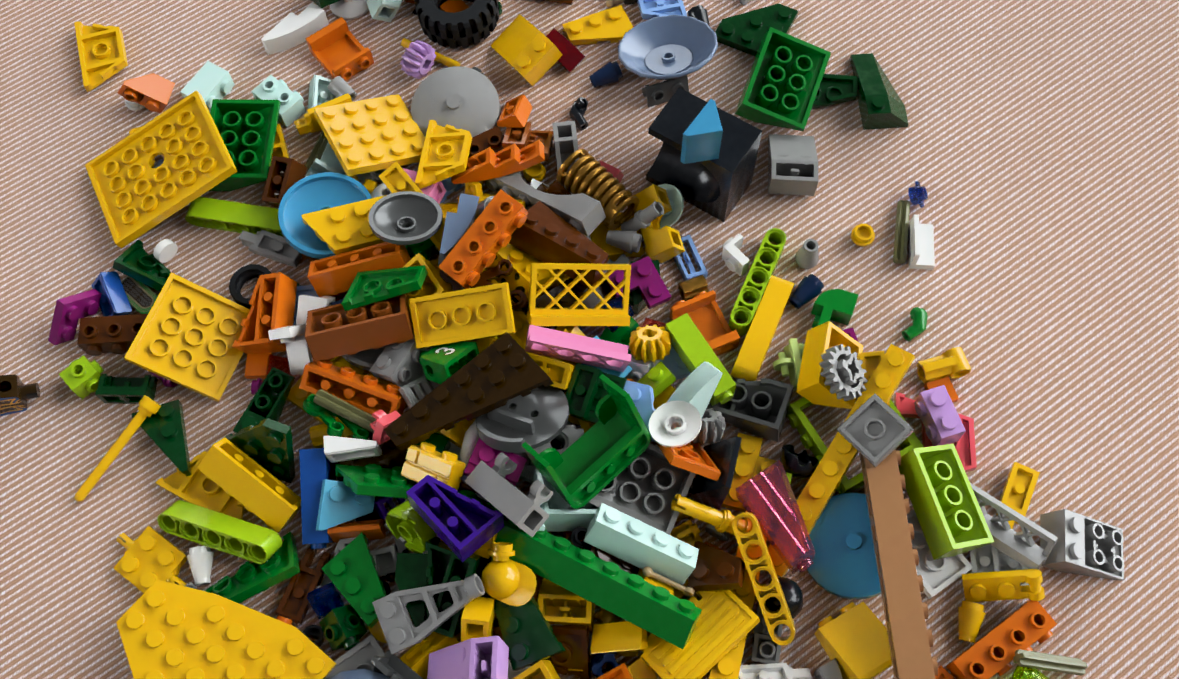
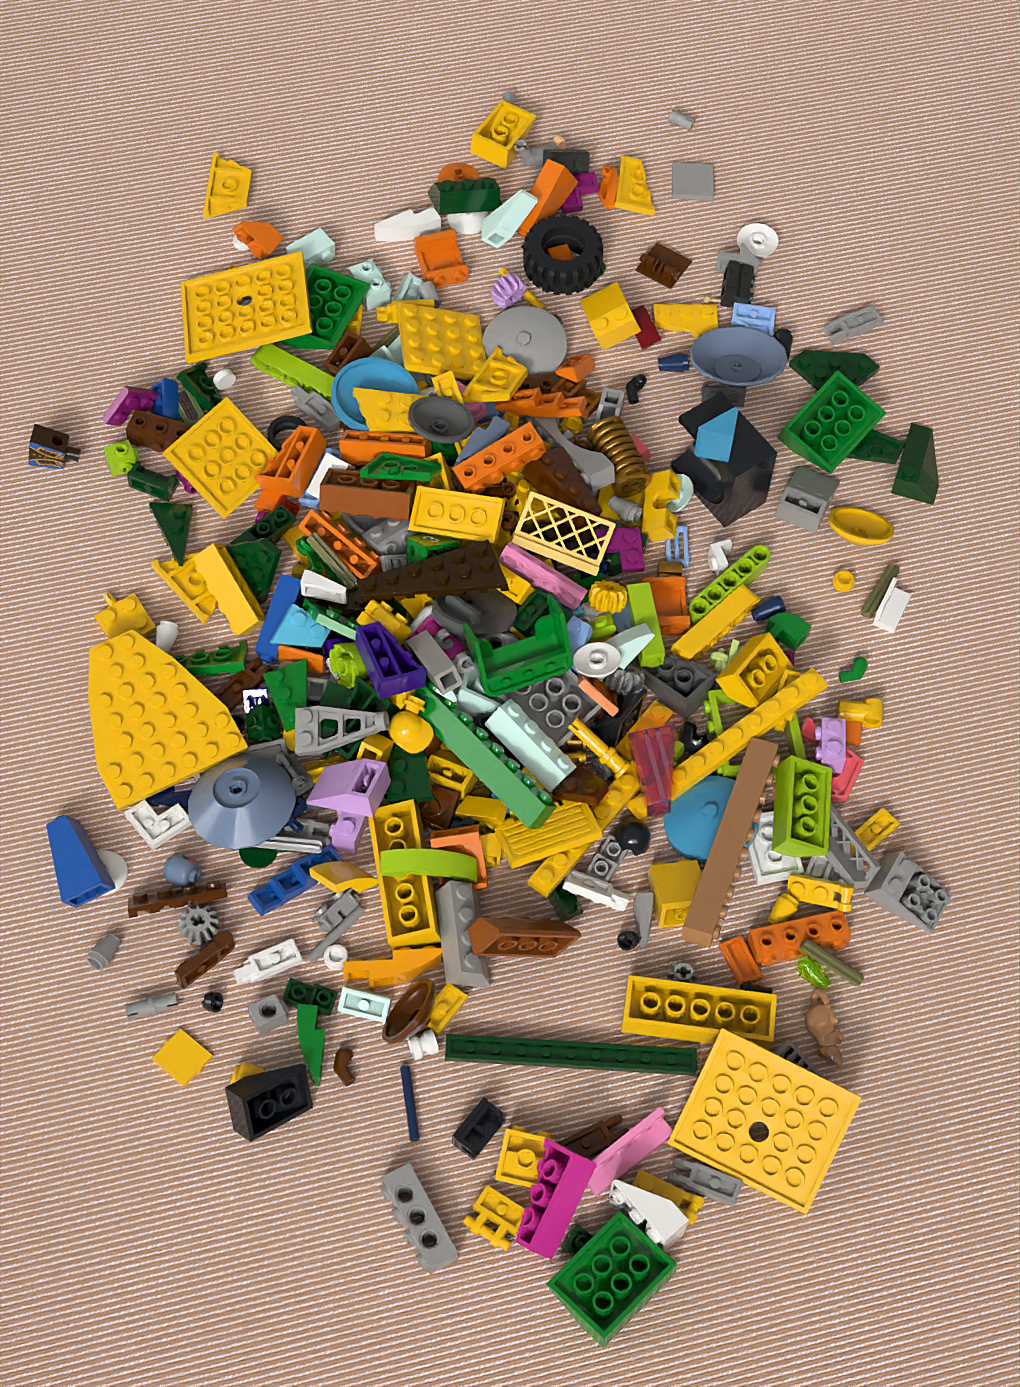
camera: 15 degrees right, 5 degrees down
(146, 408) = (165, 501): yellow piece -> none
(220, 531) = (191, 617): lime beam -> none
(296, 346) = (308, 493): white bracket -> none
(382, 421) = (357, 574): coral tile -> none
(643, 218) = (649, 494): light grey pin -> none
(648, 572) = (527, 768): tan hinge -> none
(764, 591) = (616, 795): yellow beam -> none
(807, 255) = (784, 579): light grey cone -> none
(843, 372) = (759, 674): light grey gear -> none
(856, 174) = (860, 526): none -> yellow dish
(875, 430) = (765, 728): light grey tile -> none
(918, 194) = (910, 564): clear blue plate -> none

